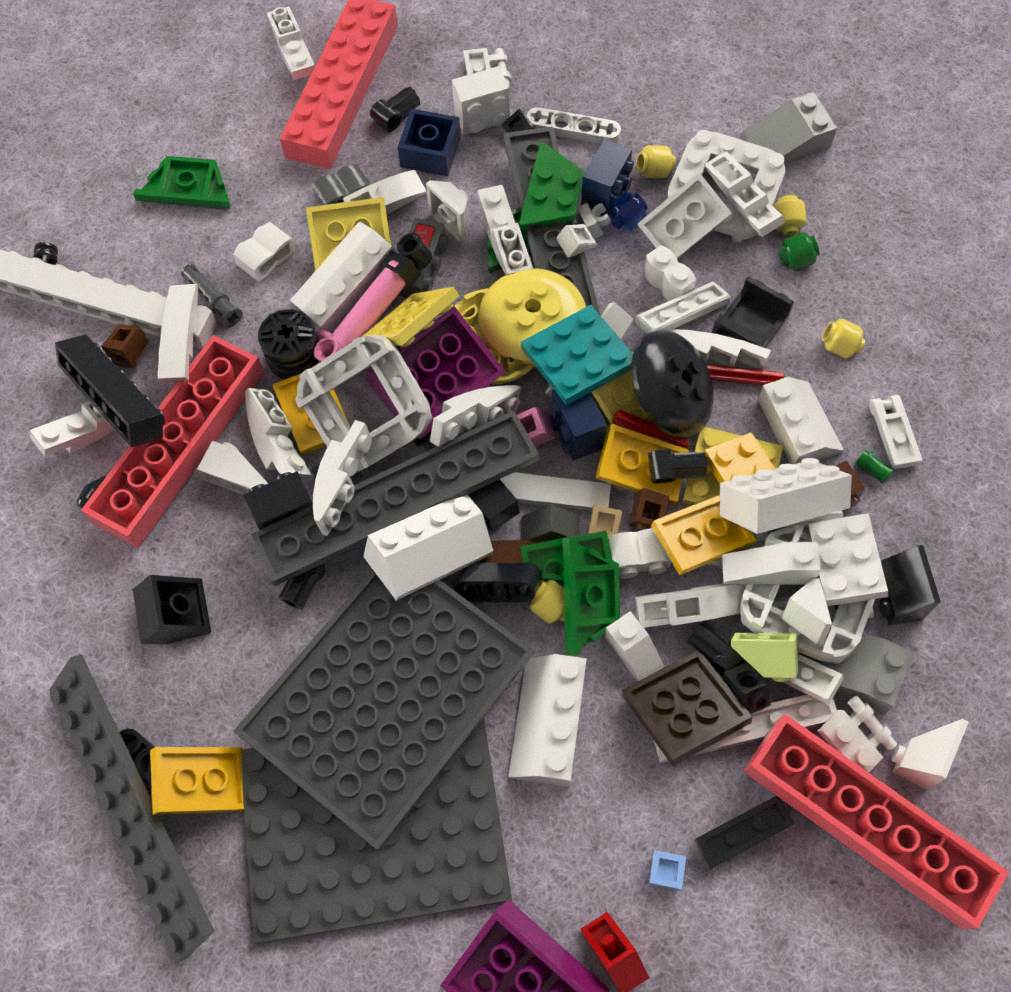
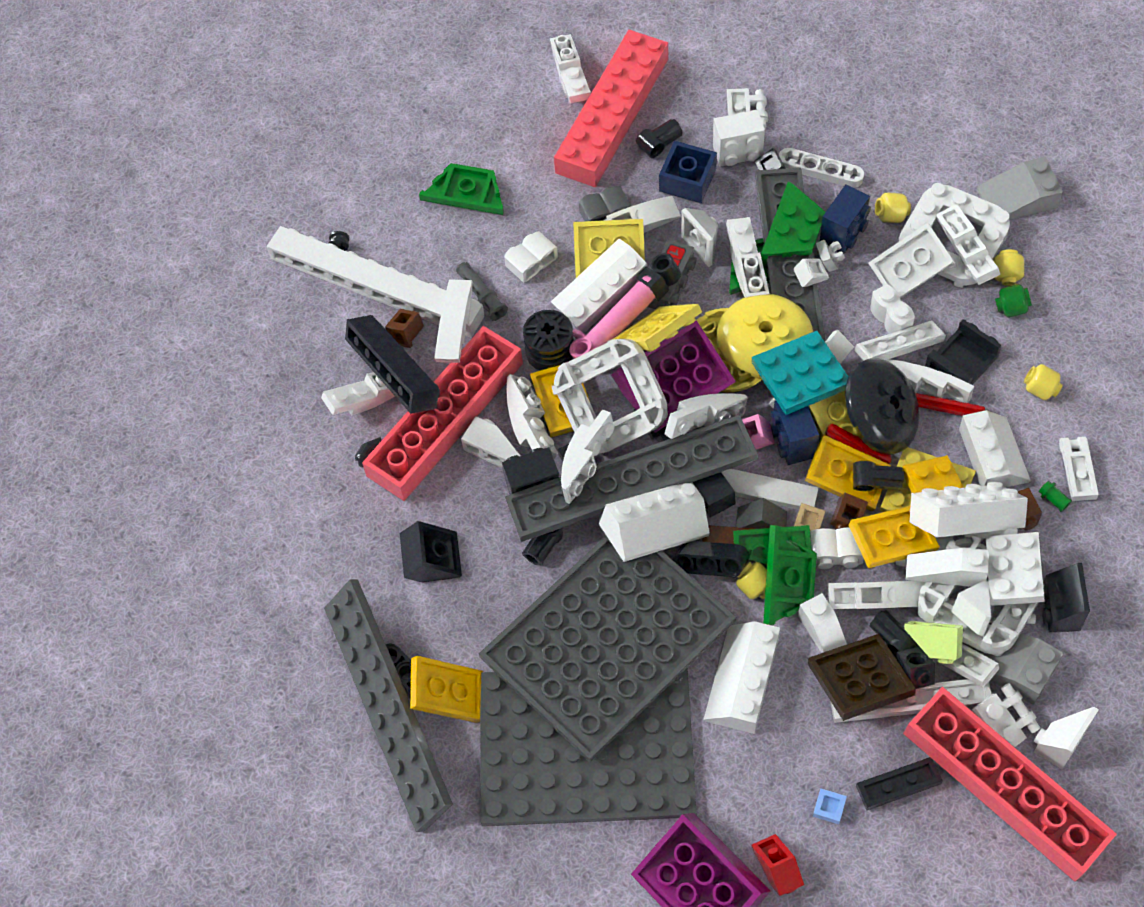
camera: 10 degrees right, 5 degrees down
(628, 211) = (861, 250): clear blue head -> none

